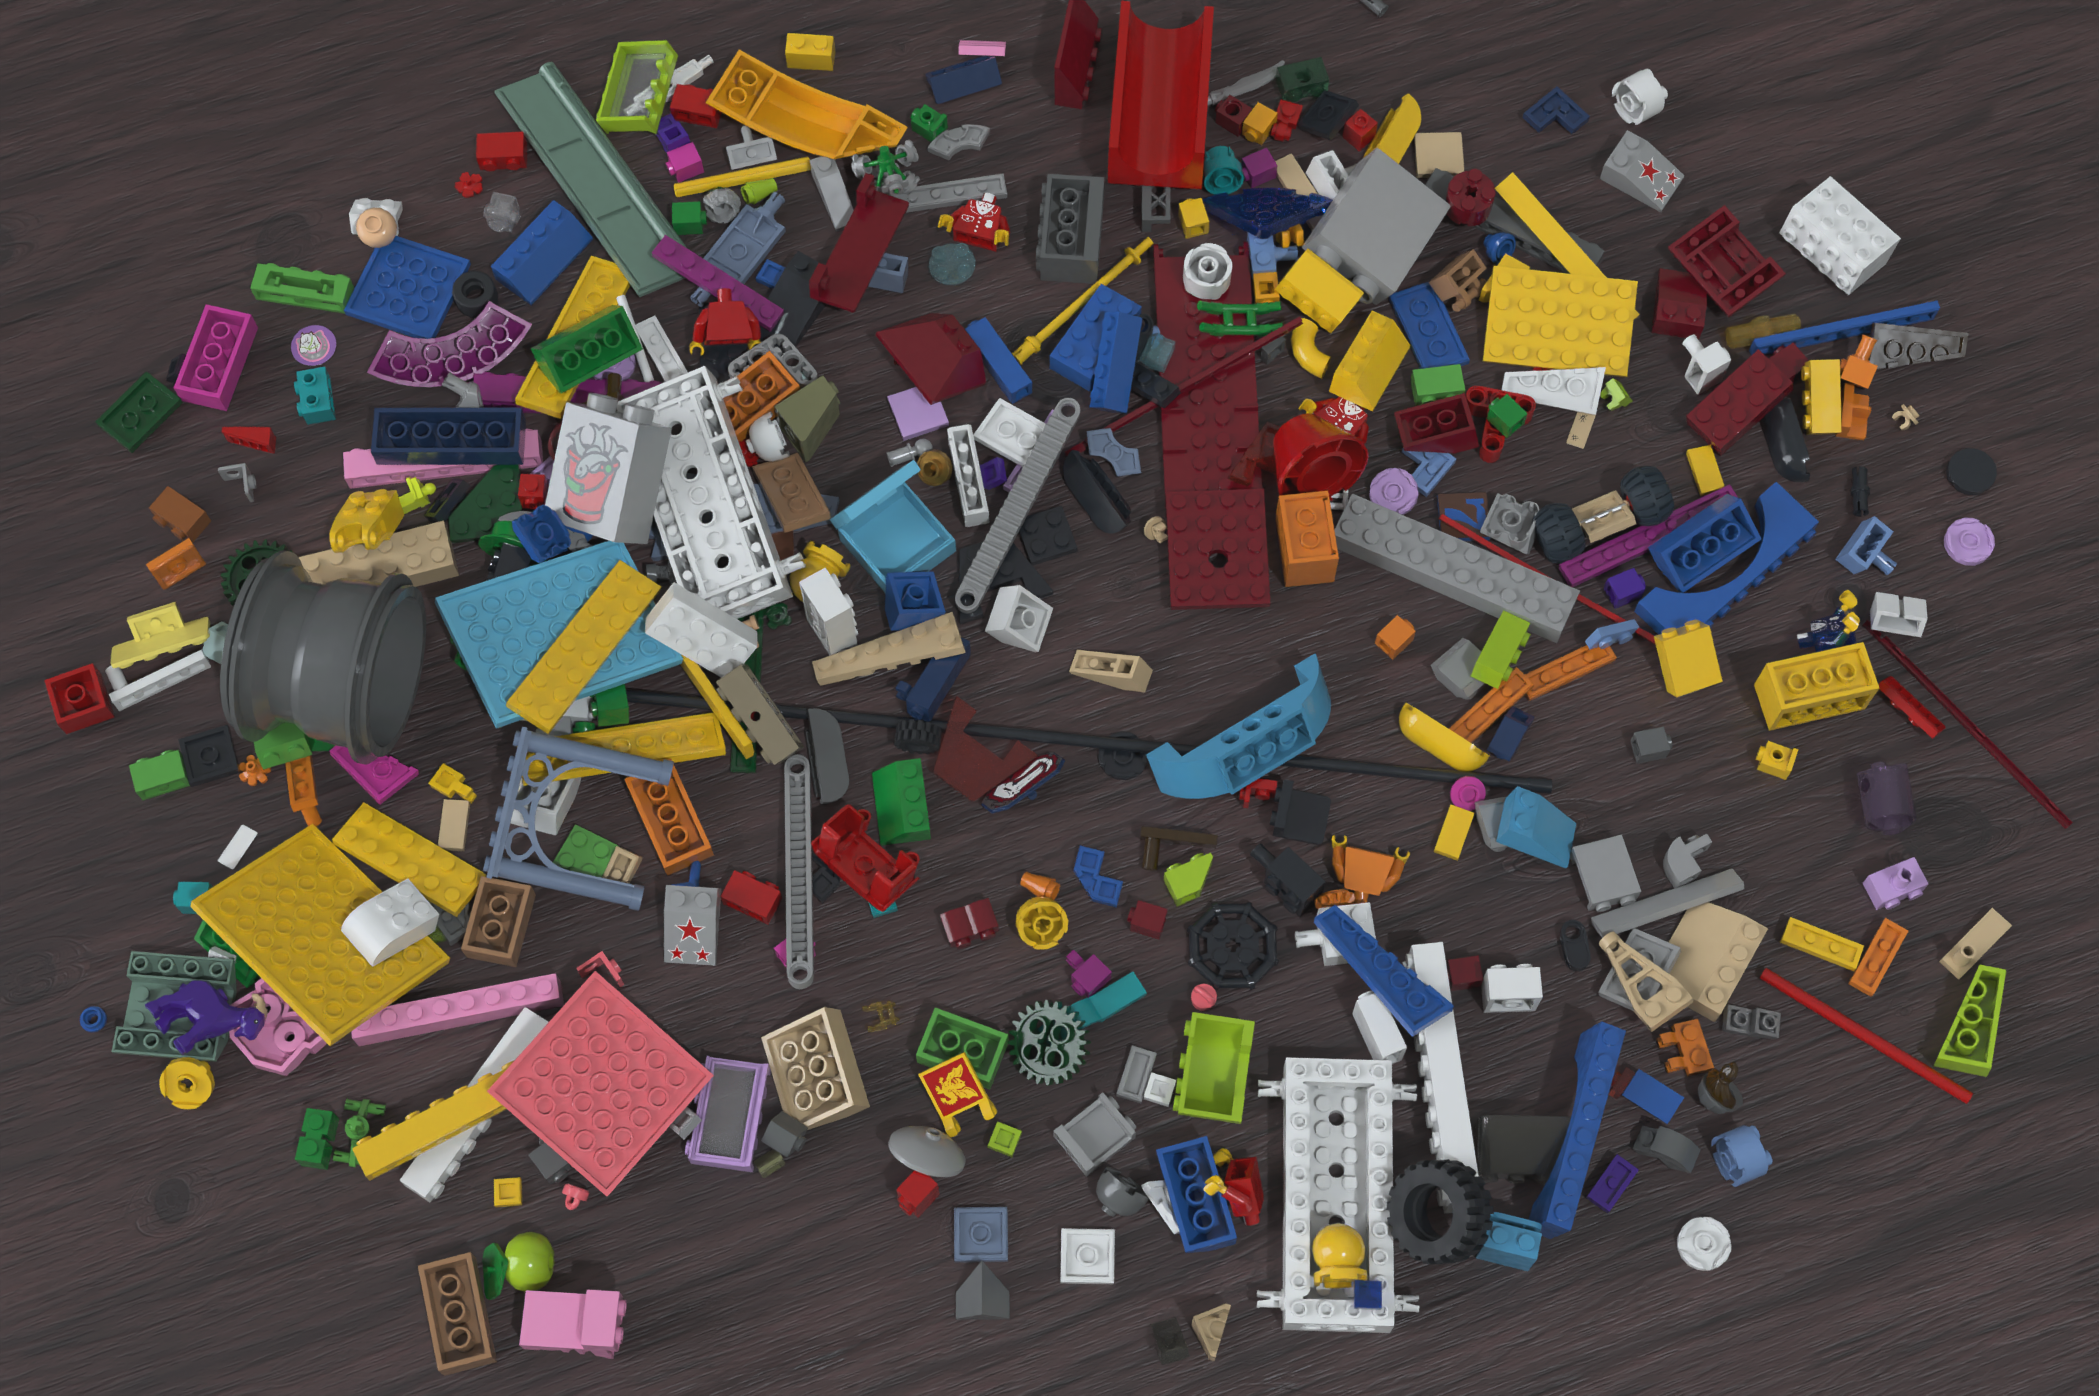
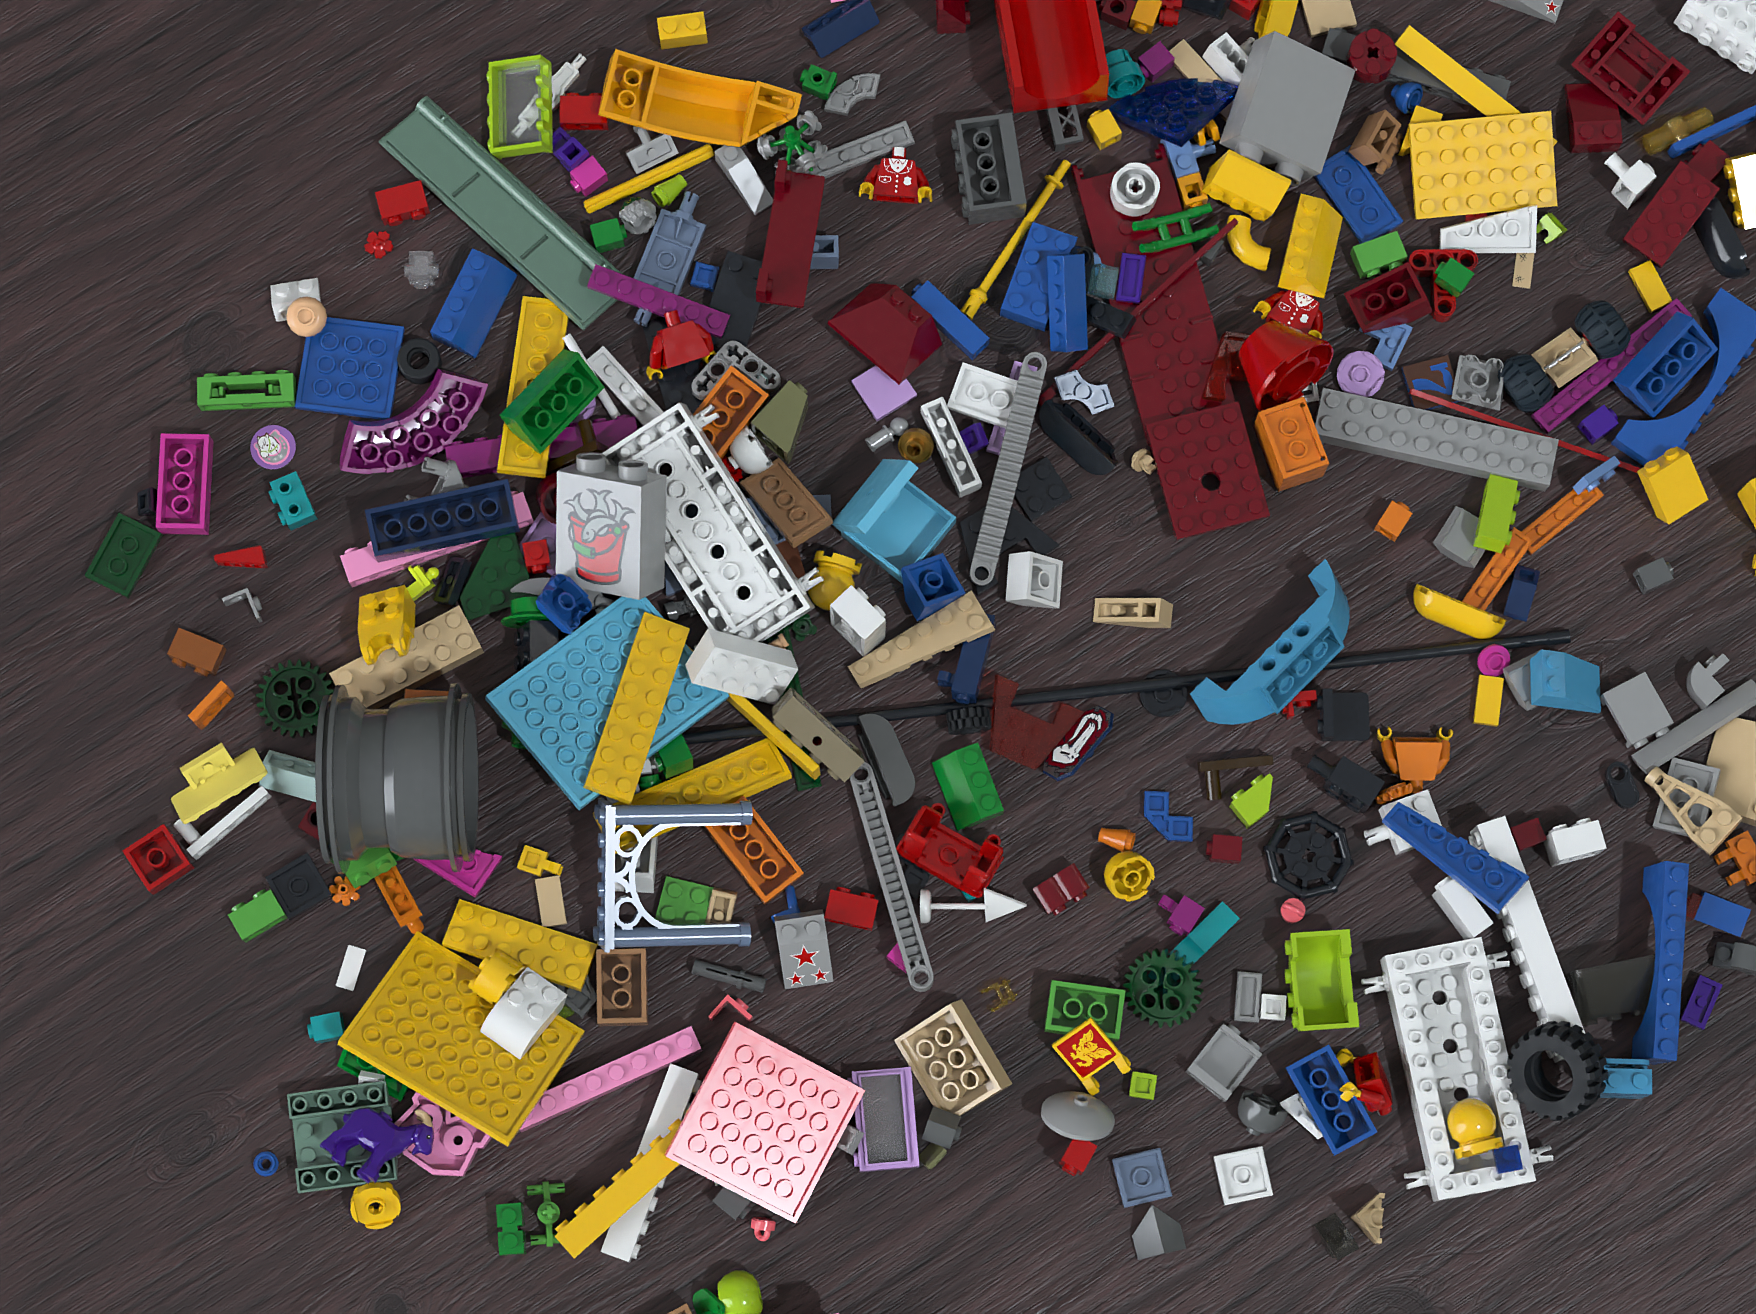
camera: 15 degrees left, 10 degrees up
(371, 877) = (496, 977): none -> yellow brick
(507, 1192) = (699, 1237): yellow tile -> none
(619, 940) = (730, 976): none -> dark grey pin
(898, 920) = (995, 905): none -> white piece
(952, 263) = (879, 227): clear light blue dish -> none
(1185, 355) = (1131, 278): none -> dark purple tile

